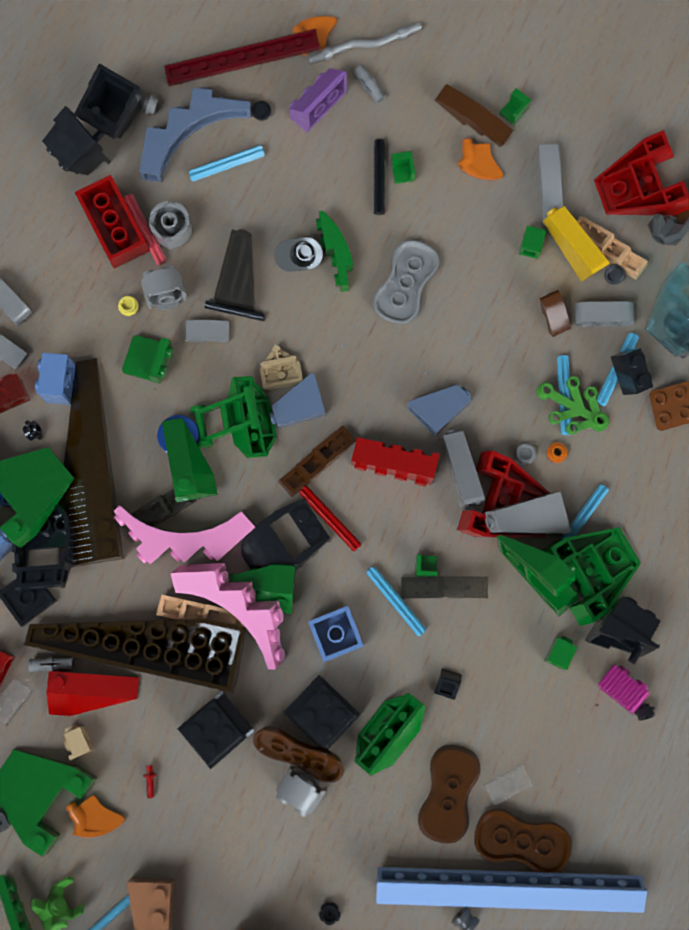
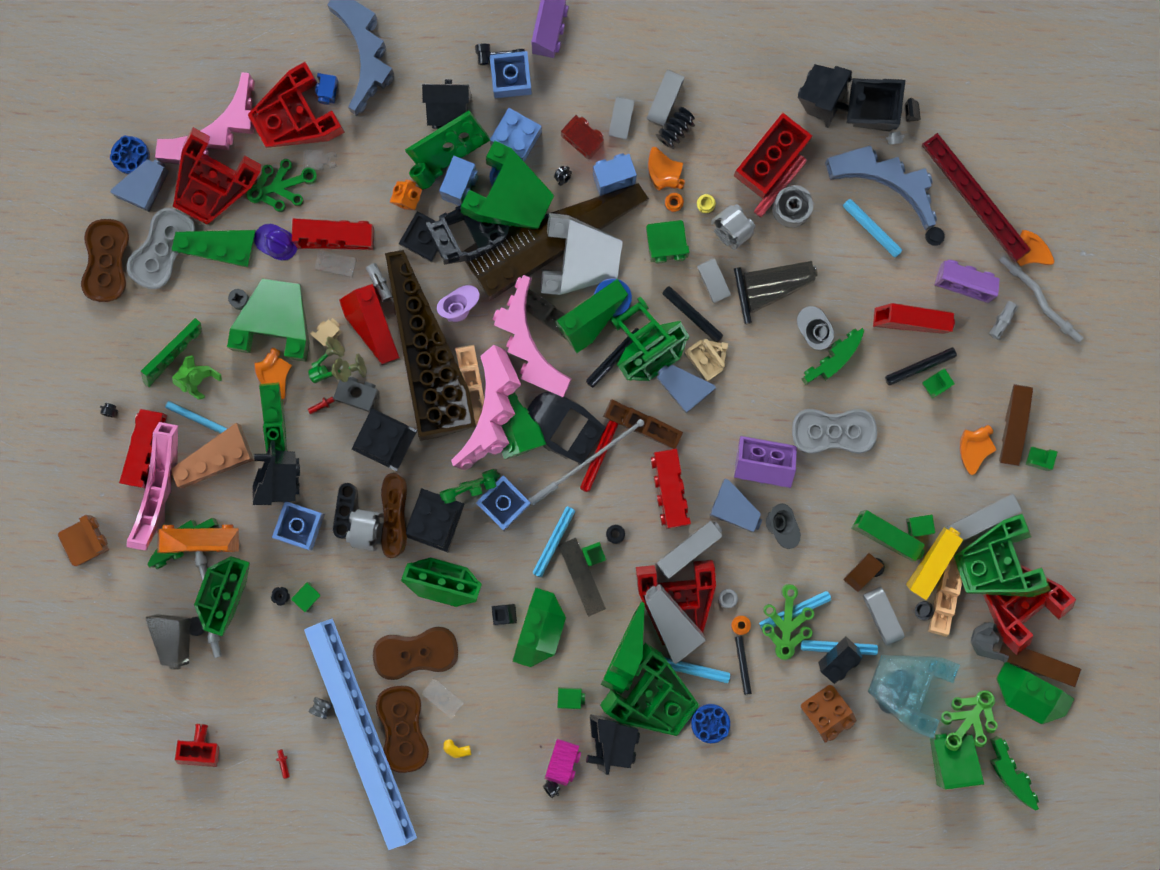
camera: 65 degrees right, 5 degrees up
(38, 300) = (676, 127): none -> black piece
(77, 331) = (664, 171): none -> orange arm
(110, 330) = (674, 196): none -> orange plate
(111, 591) = (458, 303): none -> lavender piece
(121, 743) = (340, 368): none -> olive plant
(125, 439) = (587, 259): none -> light grey wedge
(133, 77) = (912, 110): none -> black slope
(144, 839) = (273, 416): none -> green slope
(145, 748) = (365, 401): none -> dark grey brick
(205, 863) = (277, 478): none -> black piece
(230, 366) = (692, 314): none -> black axle
(241, 466) = (609, 363): none -> black axle
(259, 803) = (343, 501): none -> black beam
(265, 861) = (298, 525): none -> medium blue brick
(302, 636) = (489, 479): none -> green plant
(330, 163) = (913, 319): none -> red slope
(339, 575) = (554, 485): none -> light grey piece
(343, 886) = (306, 597): none -> green panel
(407, 359) = (765, 462): none -> medium lavender slope
(415, 529) = (615, 528): none -> black plate
(475, 369) = (783, 526): none -> dark grey piece
(479, 653) = (540, 629): none -> green wedge
(528, 275) = (888, 535): none -> green slope
(567, 796) = (454, 751): none -> yellow arm
(597, 467) = (743, 665): none -> black bar
(600, 192) = (993, 565): none -> green wedge
(641, 524) = (710, 723): none -> blue tile

